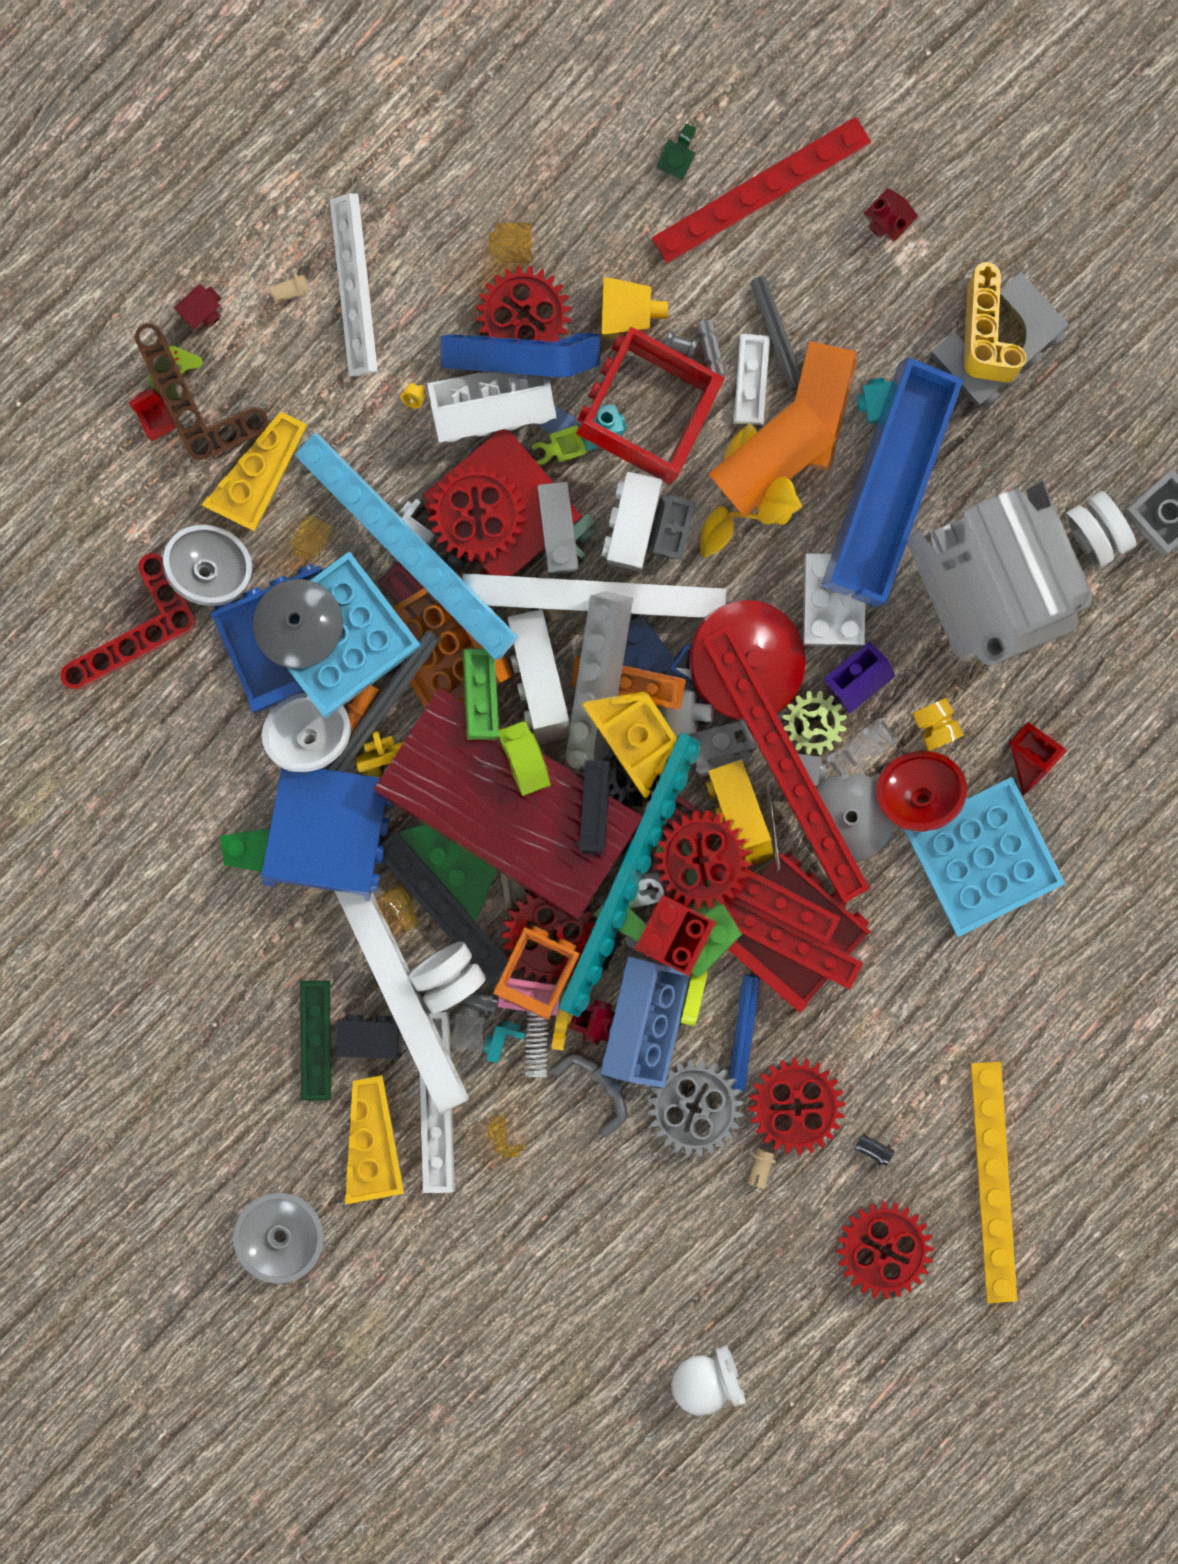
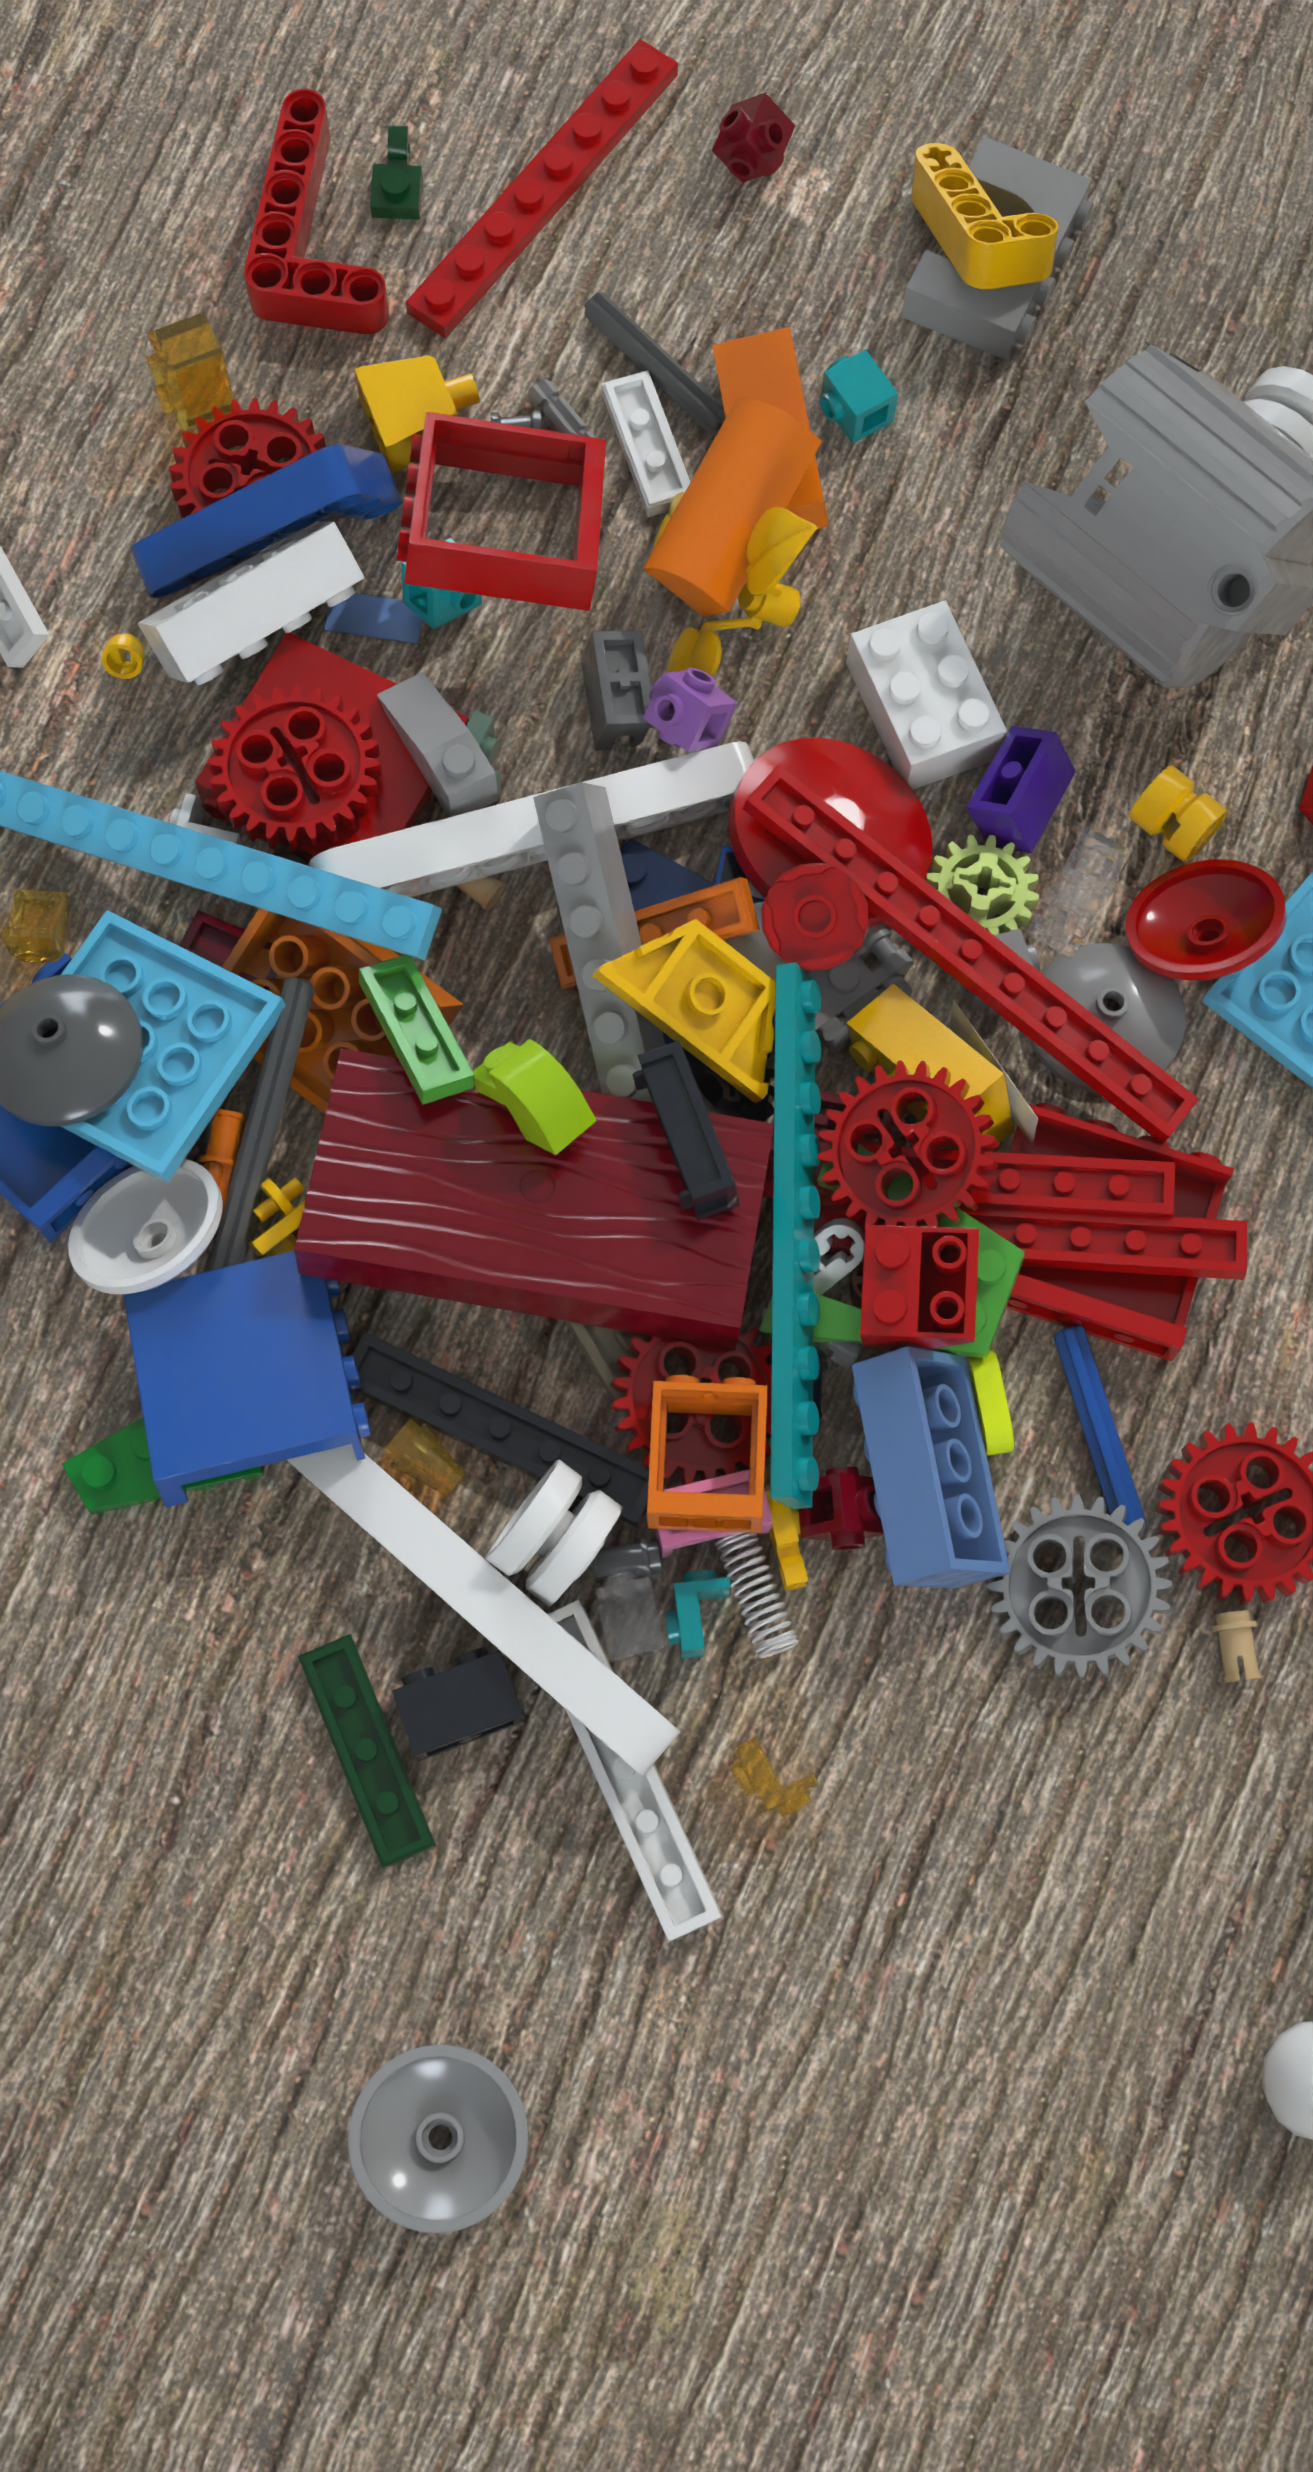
camera: 25 degrees left, 15 degrees down
(372, 1154) = (547, 1907): yellow wing -> none
(457, 869) = (490, 1347): green wing -> none
(539, 677) = (505, 984): white wedge -> none
(563, 445) = (394, 636): lime plate -> none
(607, 163) = (286, 221): none -> red beam
(612, 1088) = (905, 1606): flat silver piece -> none
(632, 521) = (552, 693): white brick -> none
(699, 563) = (689, 709): none -> medium lavender brick
(711, 715) = (815, 916): none -> red tile
(892, 482) = (939, 473): blue piece -> none

